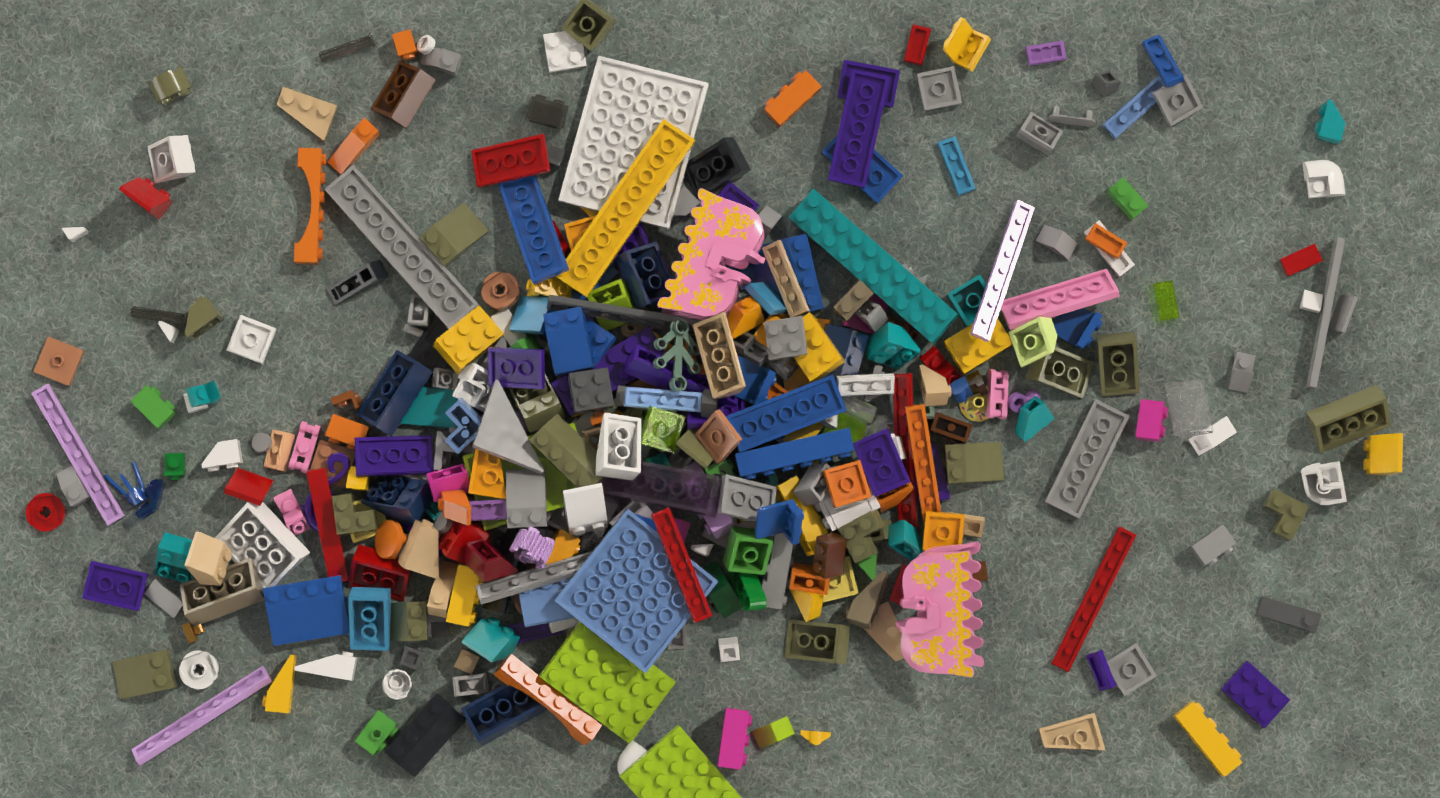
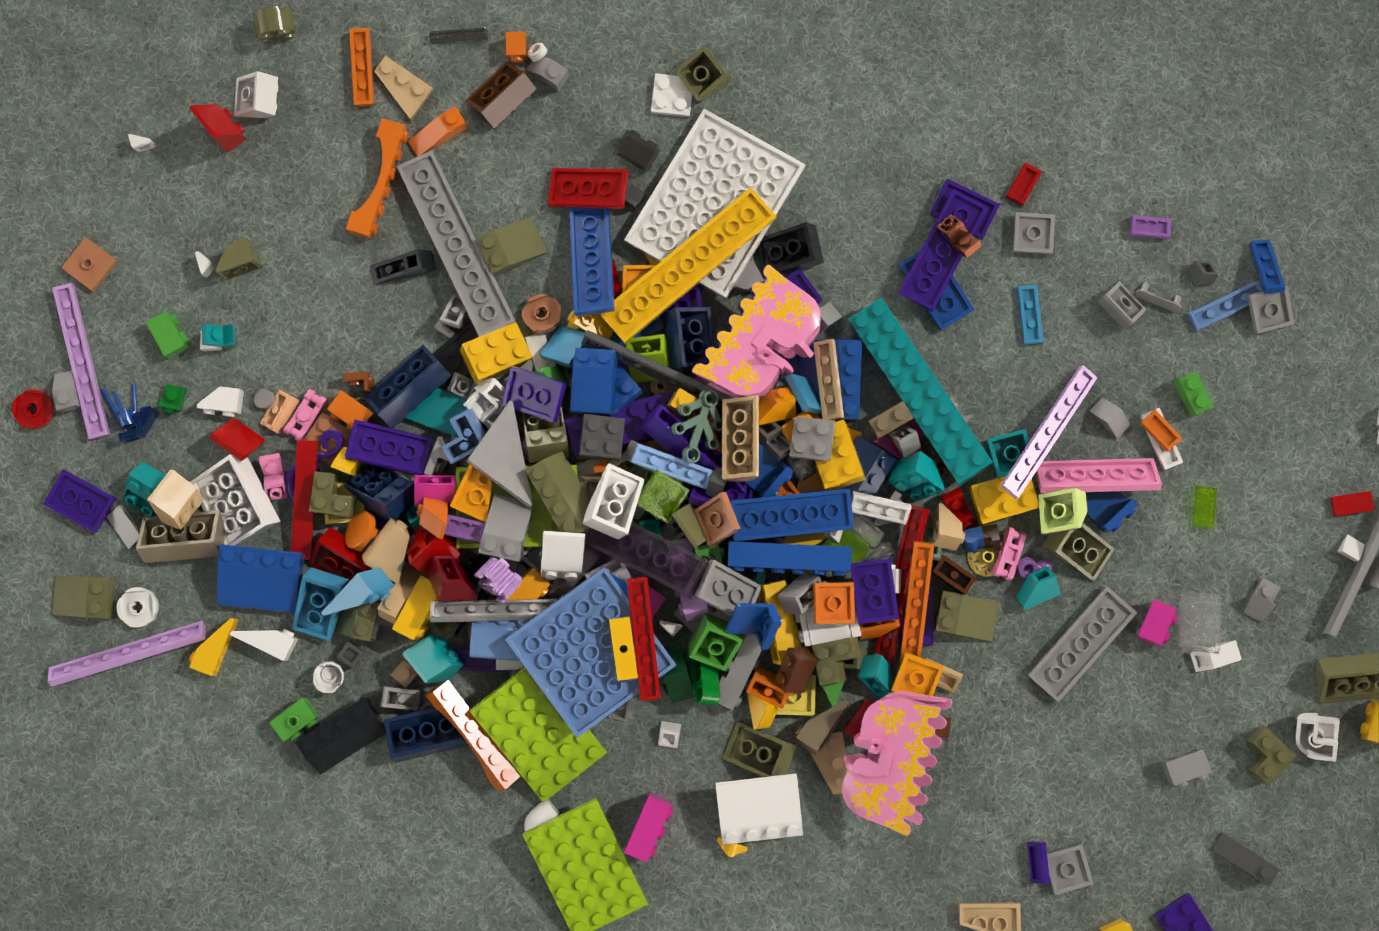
camera: 25 degrees right, 0 degrees up
(159, 315) = (197, 245): clear smoke axle -> none
(192, 632) = (140, 568): pearl gold tile -> none
(251, 339) = (283, 294): white plate -> none
(264, 104) = (362, 67): none -> orange plate
(411, 590) = (362, 589): none -> dark azure slope
(442, 524) = (416, 530): light grey tile -> none
(650, 335) = (679, 397): none -> yellow brick
(669, 590) = (624, 660): none -> yellow tile
(773, 732) = (690, 831): lime slope -> none
(792, 98) = (884, 202): orange brick -> none
(831, 692) = (759, 809): none -> white slope
(869, 112) = (958, 236): none -> copper slope
(965, 45) = (1072, 197): yellow bracket -> none
(1093, 599) = (1050, 787): red tile -> none
(1118, 363) = (1139, 556): olive slope -> none

